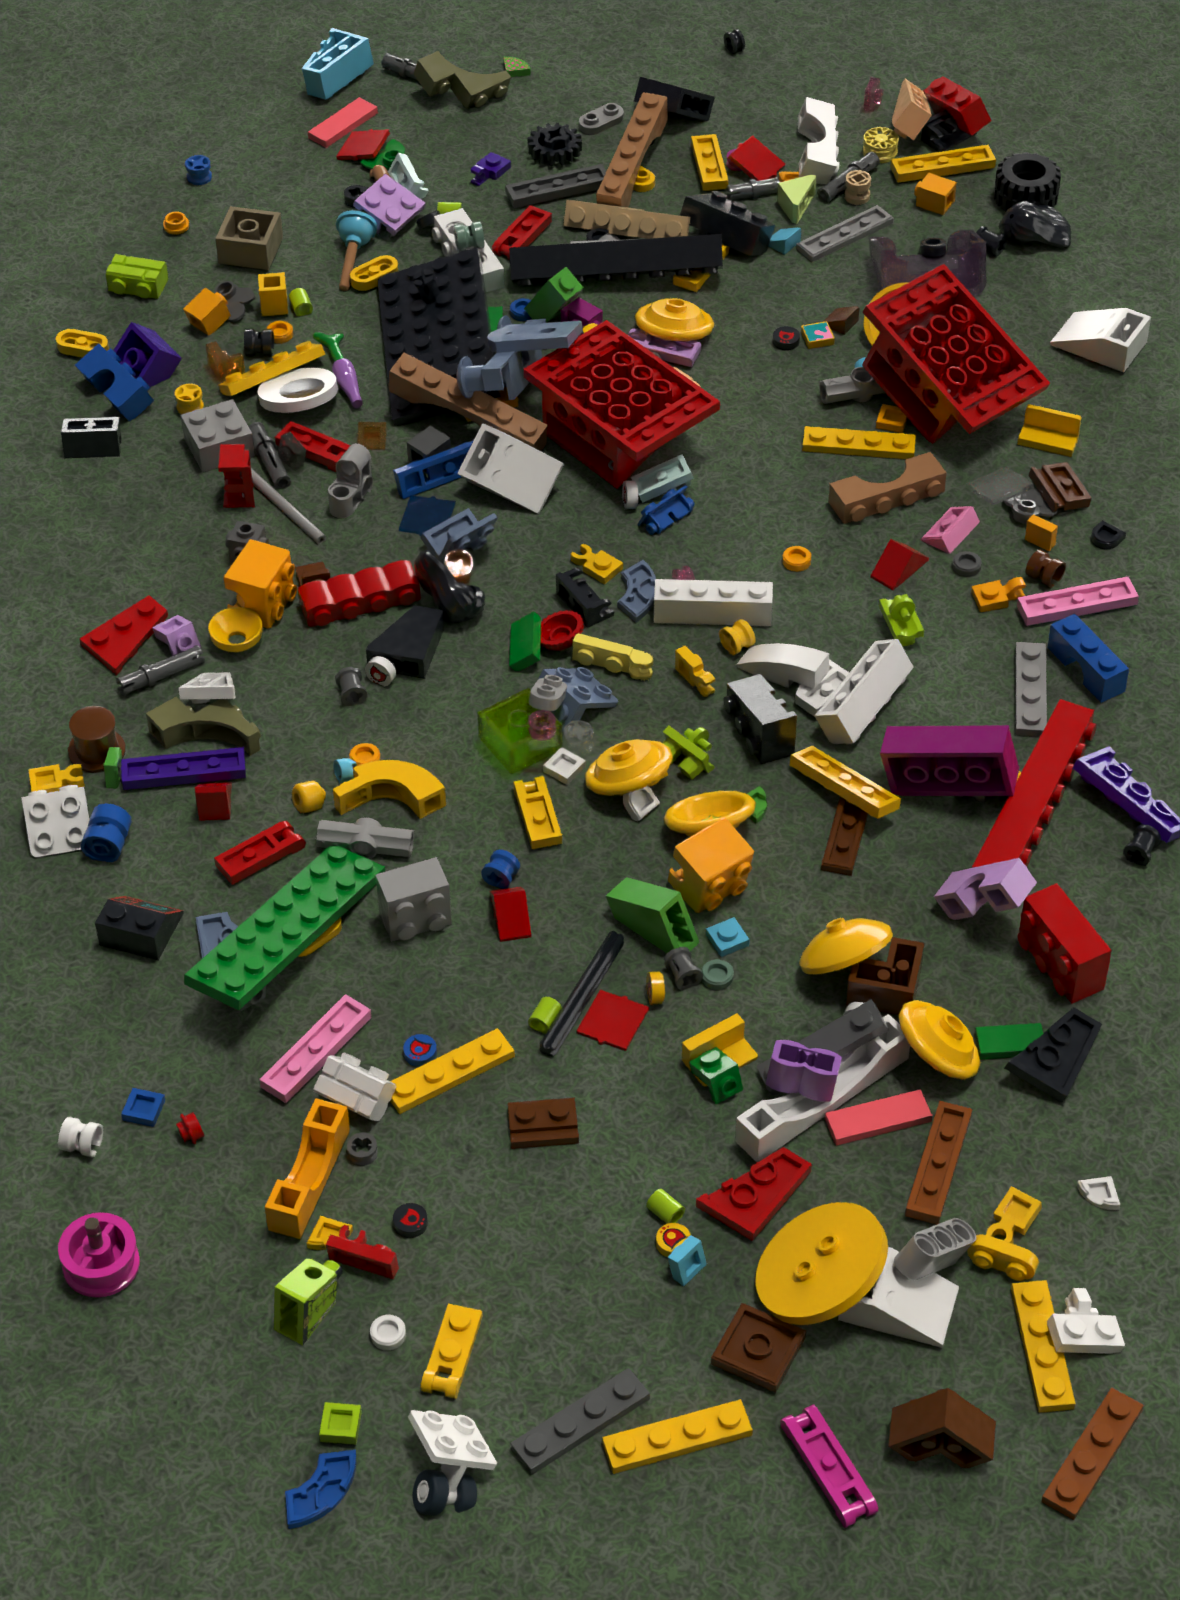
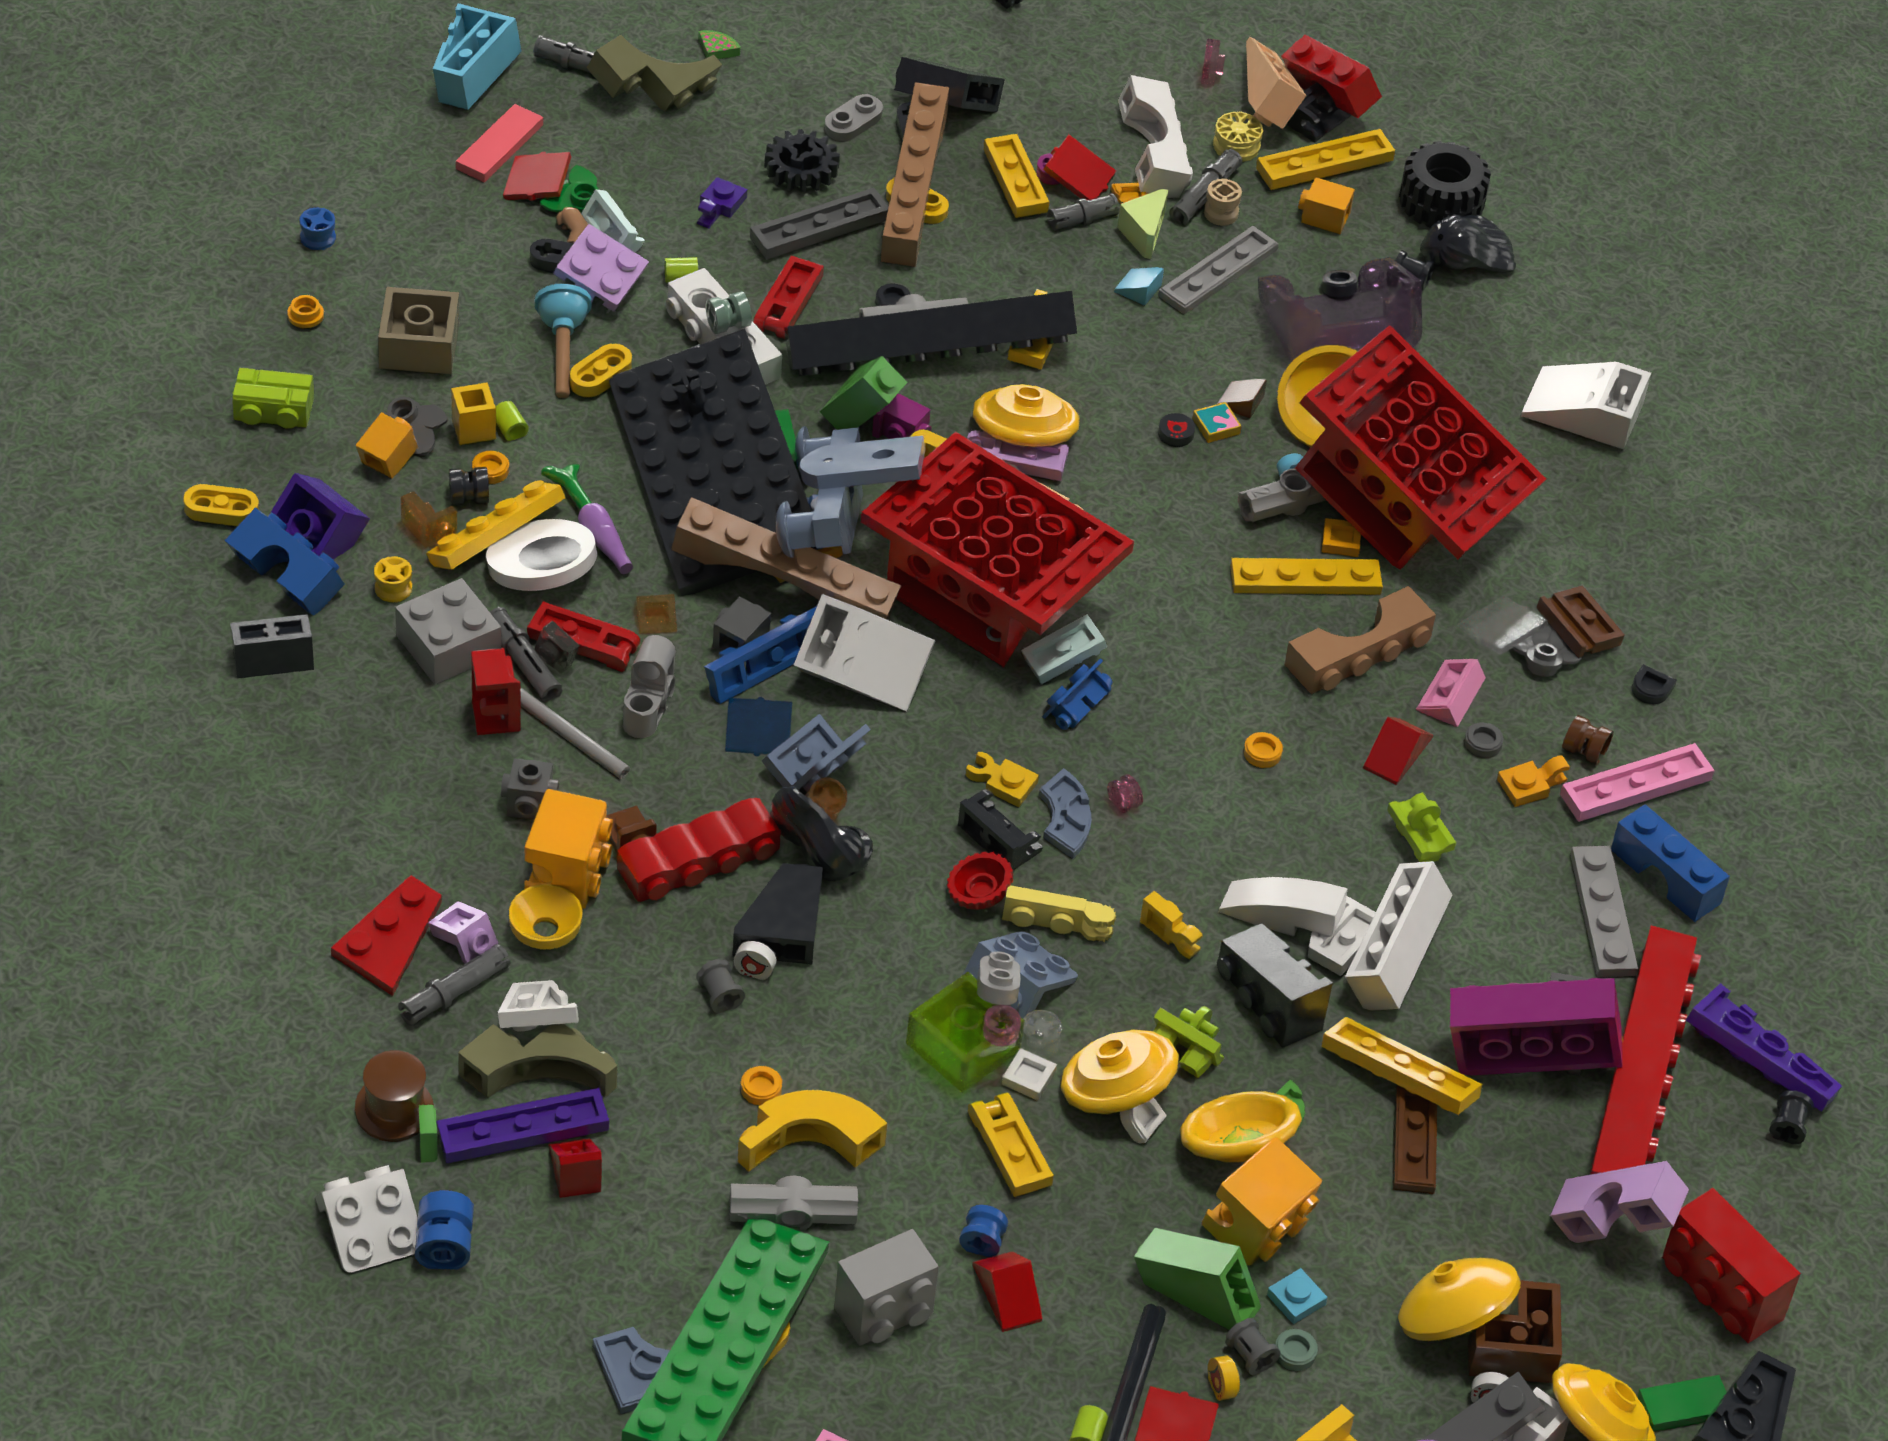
camera: 15 degrees left, 0 degrees up
(52, 778) = (347, 1159): yellow plate -> none
(136, 926) = (519, 1360): black slope -> none
(259, 852) = (654, 1237): red plate -> none
(308, 796) = (700, 1150): yellow piece -> none
(344, 768) = (743, 1103): medium azure hinge -> none
(427, 219) = (656, 285): black tile -> none
(517, 309) = (809, 409): blue tile -> none
(525, 641) = (937, 901): green tile -> none
(624, 220) = (930, 273): tan bracket -> none
(630, 494) = (1026, 675): white tile -> none
(712, 602) = (1173, 824): white brick -> none
(737, 225) = (1067, 265): black wedge -> none
(737, 636) = (1214, 870): yellow wheel -> none
(1041, 532) = (1571, 689): light orange tile -> none
(1050, 430) = (1550, 541): yellow panel -> none

